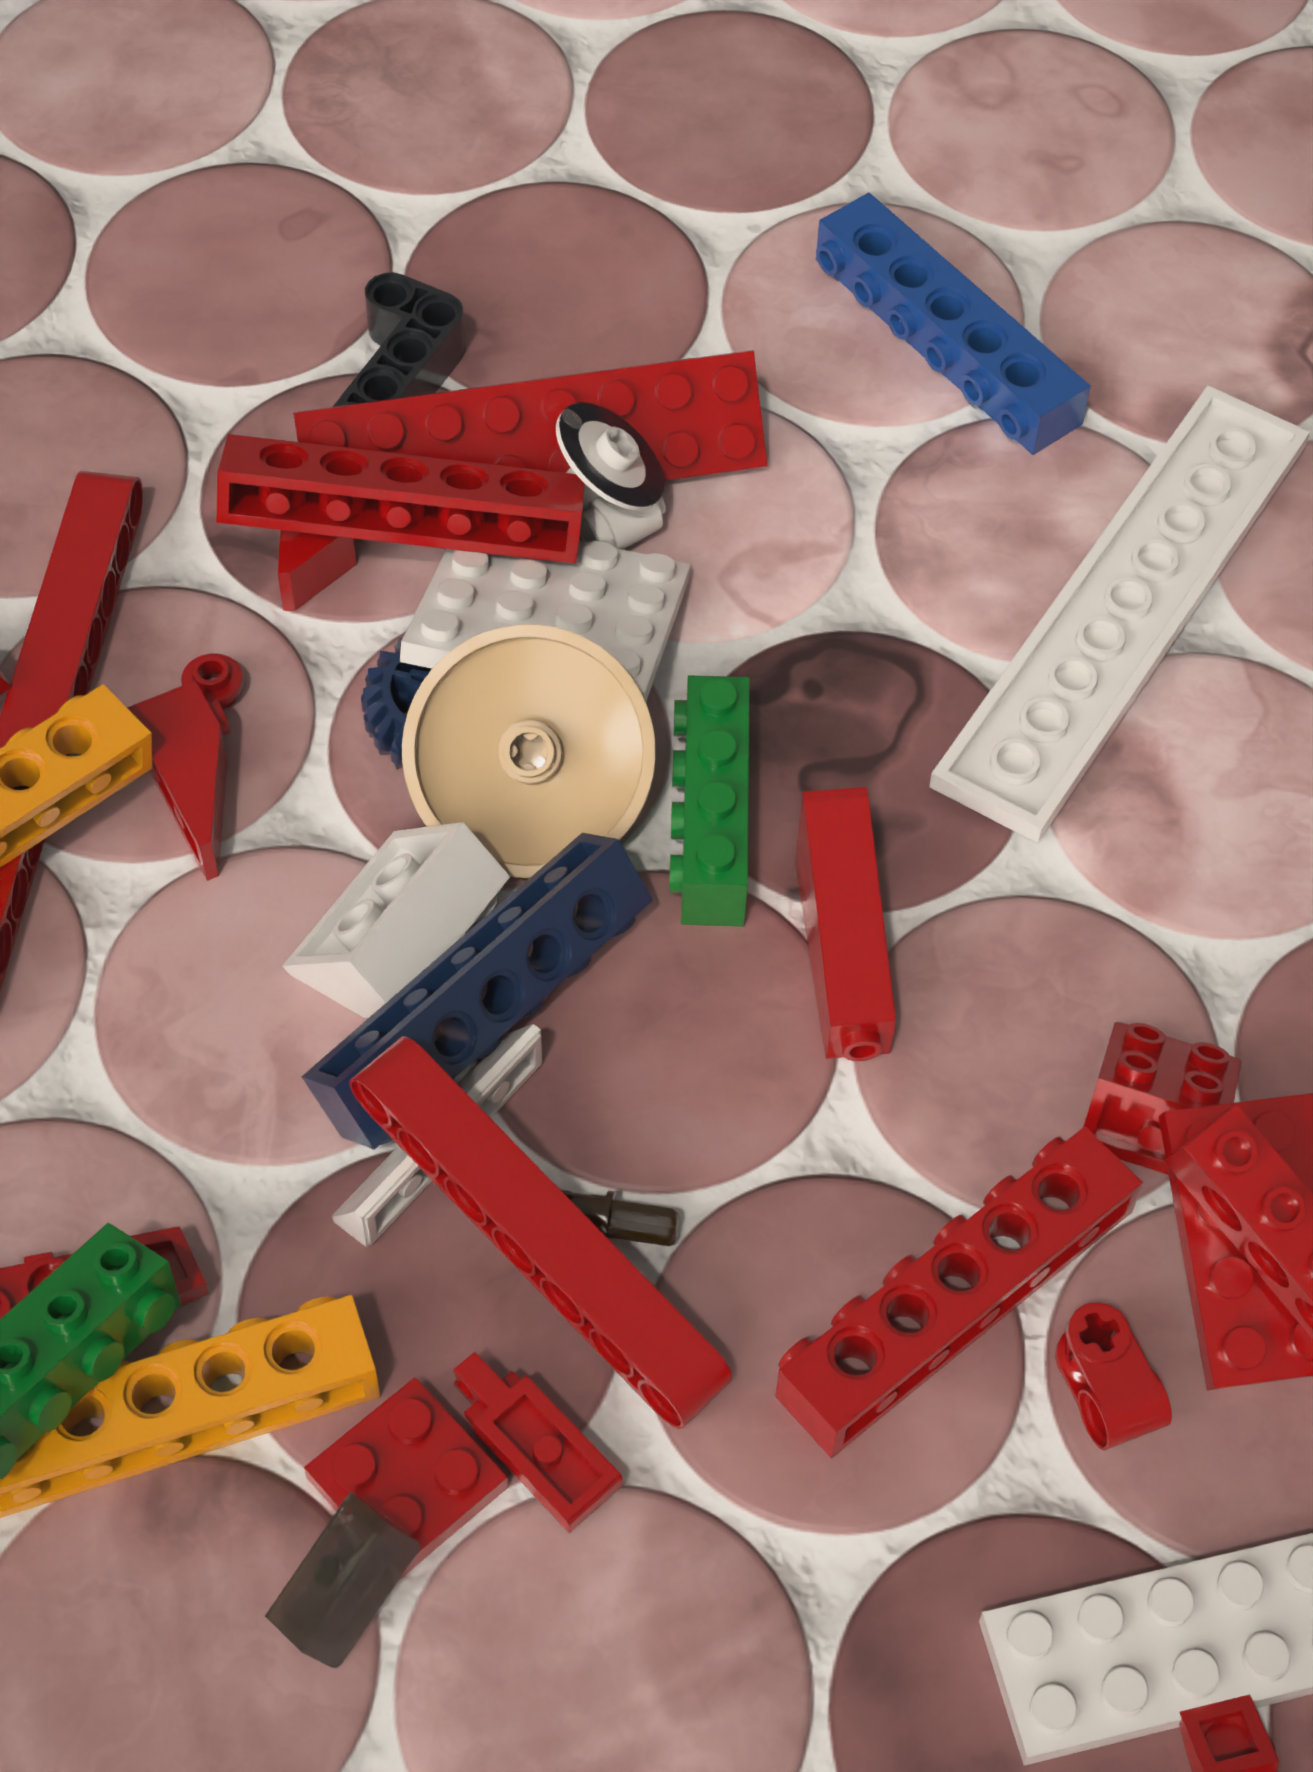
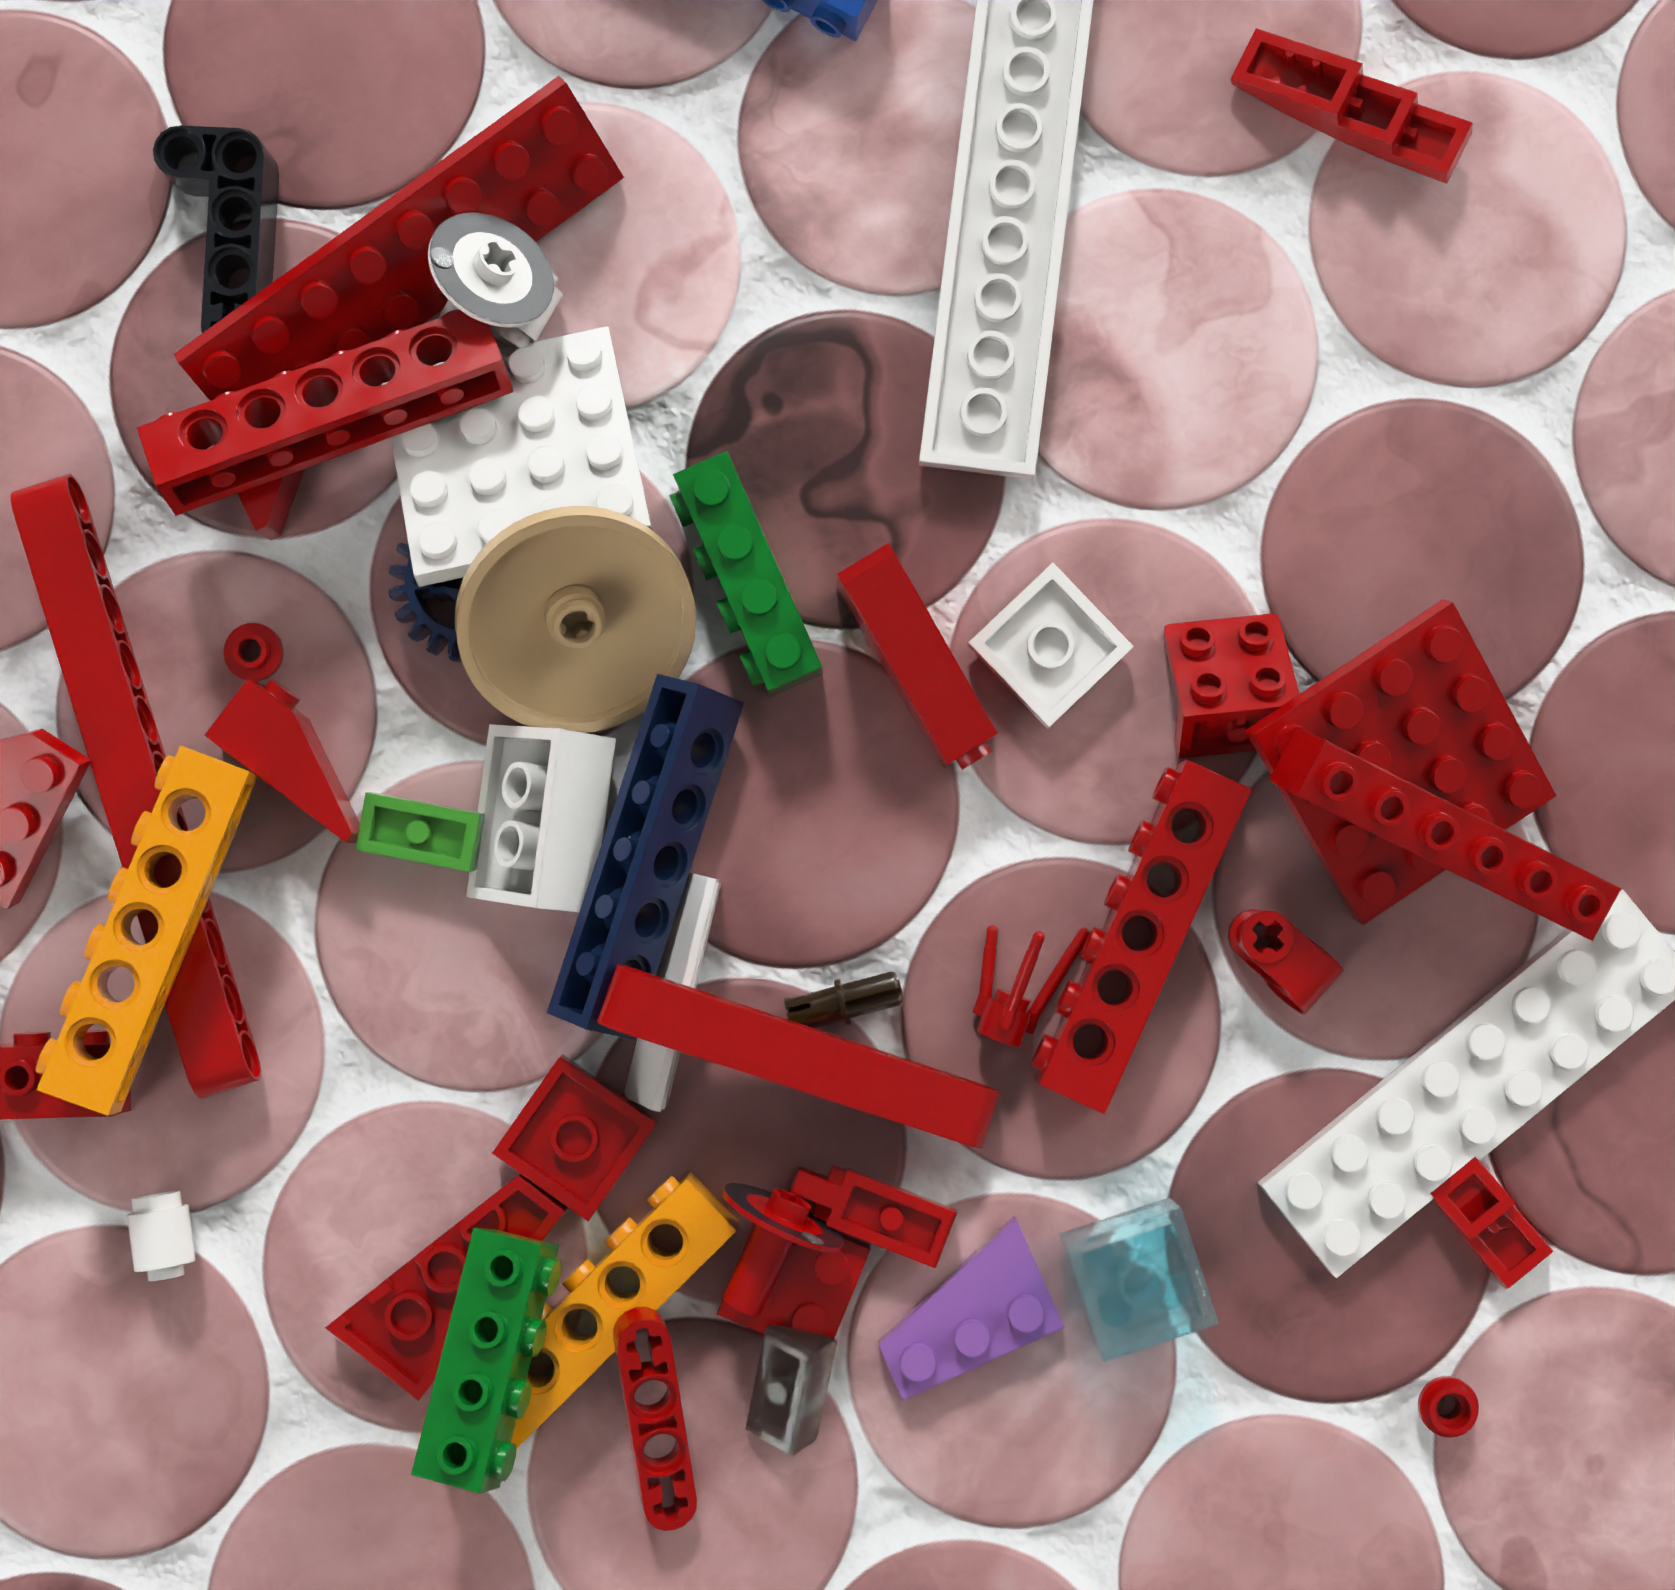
camera: 25 degrees left, 30 degrees up
(168, 1529) = (655, 1419): none -> red beam
(259, 1223) = (575, 1137): none -> red plate
(274, 883) = (420, 831): none -> bright green plate
(385, 1412) = (780, 1222): none -> red piece
(583, 1610) = (973, 1317): none -> medium lavender wing
(776, 1301) = (1007, 1014): none -> red plant
(793, 1632) = (1138, 1279): none -> clear light blue brick
(988, 985) = (1050, 645): none -> white plate

